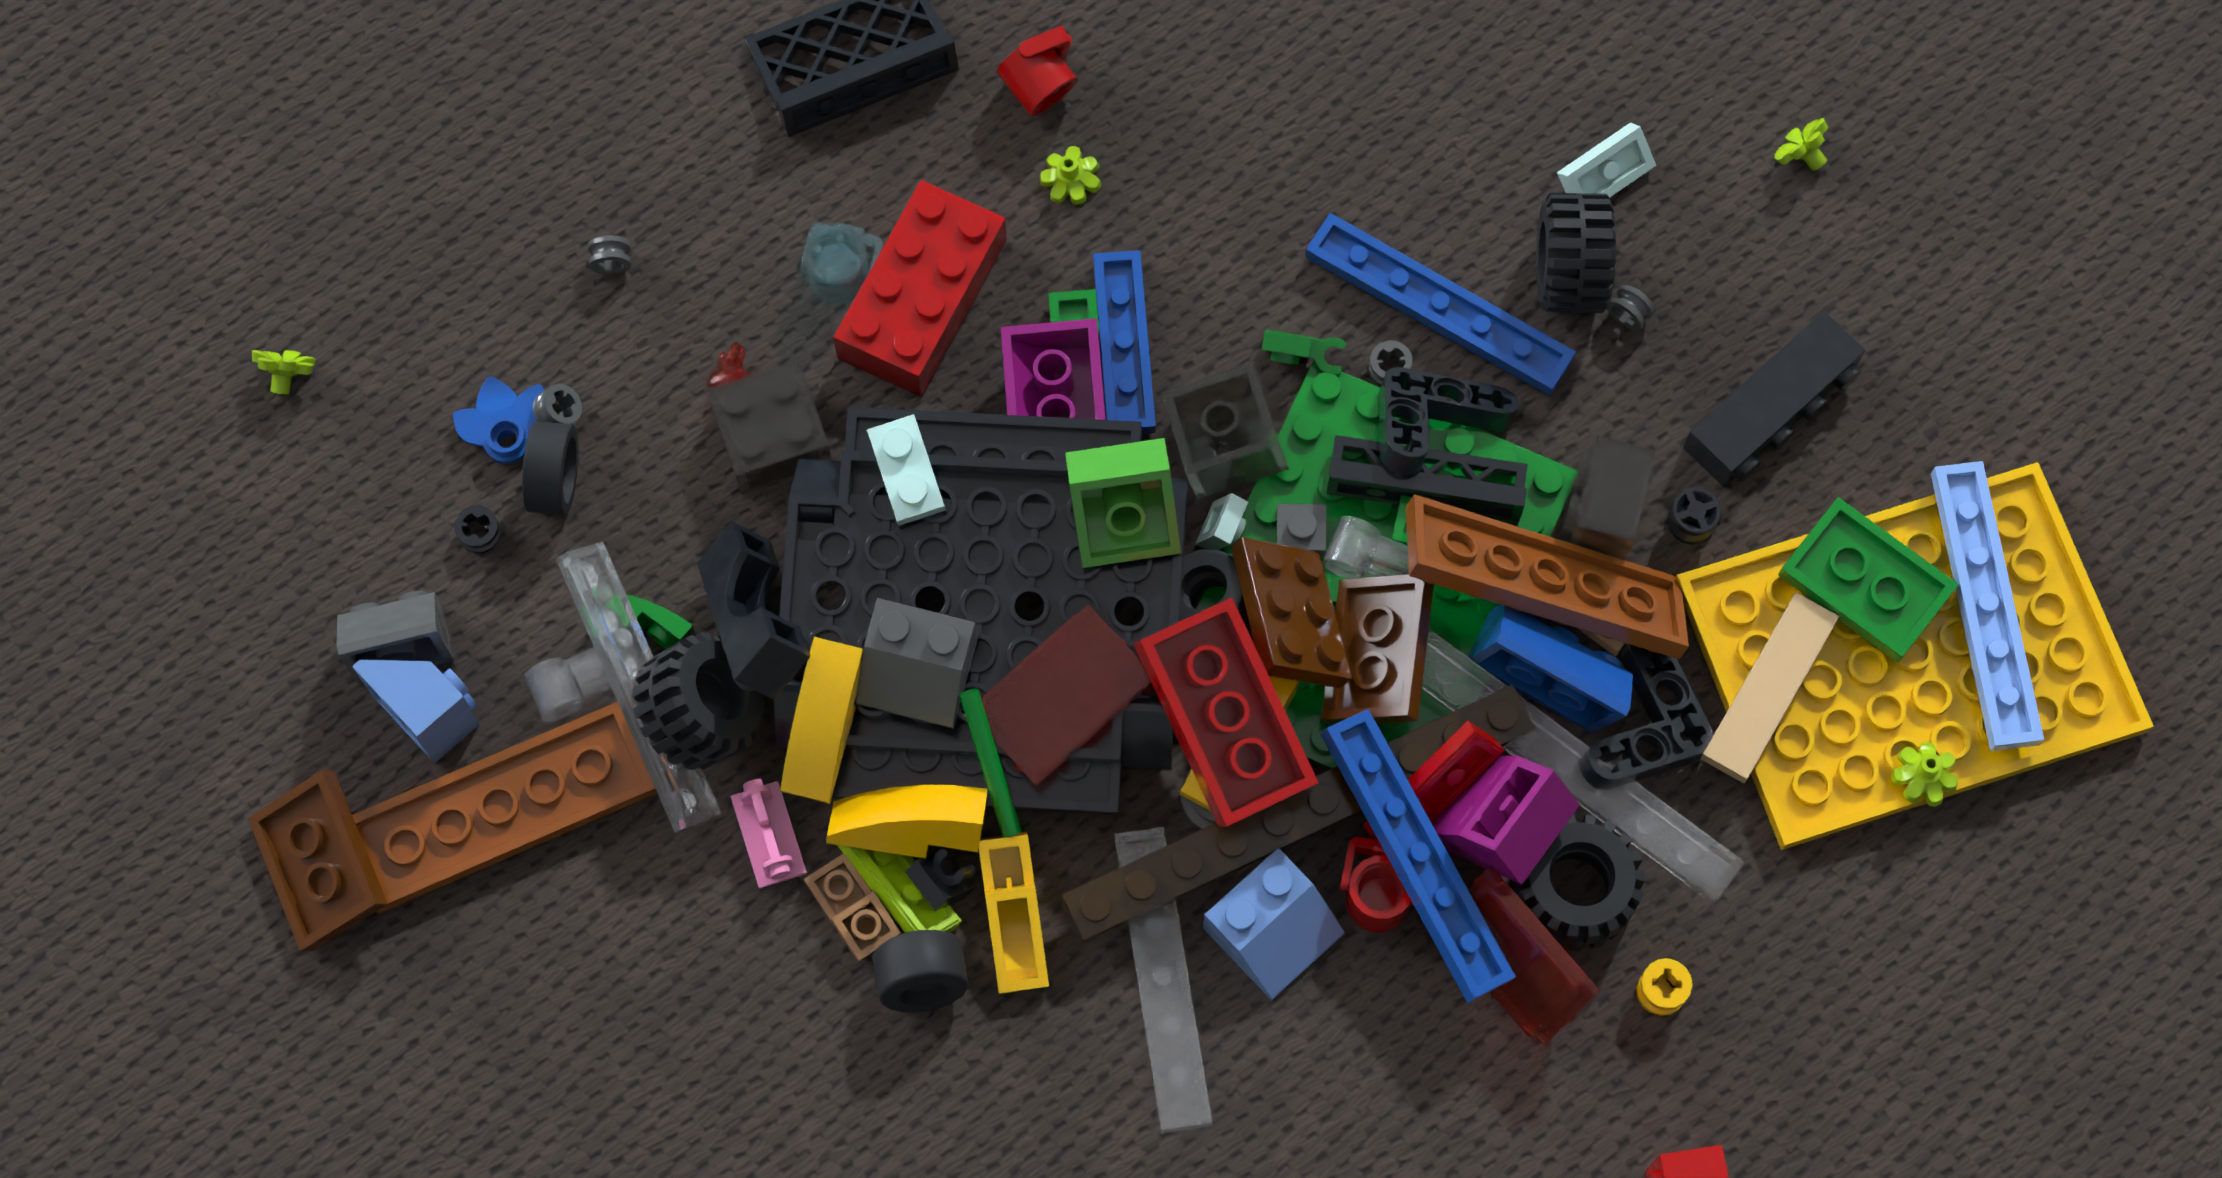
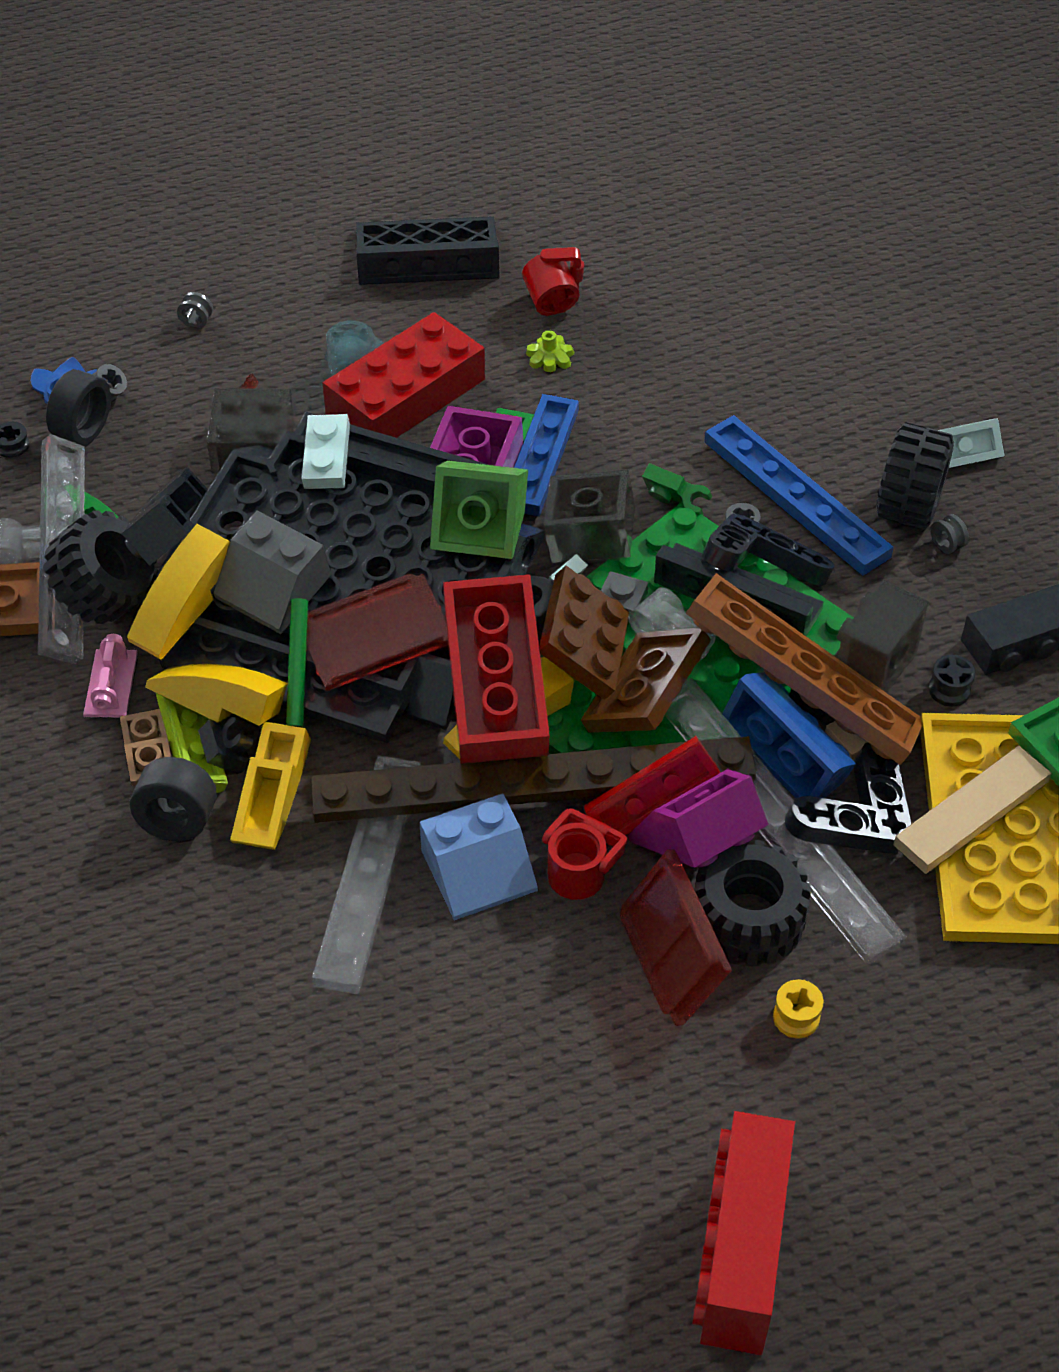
camera: 20 degrees right, 20 degrees down
(1418, 855) = (616, 829): blue plate -> none

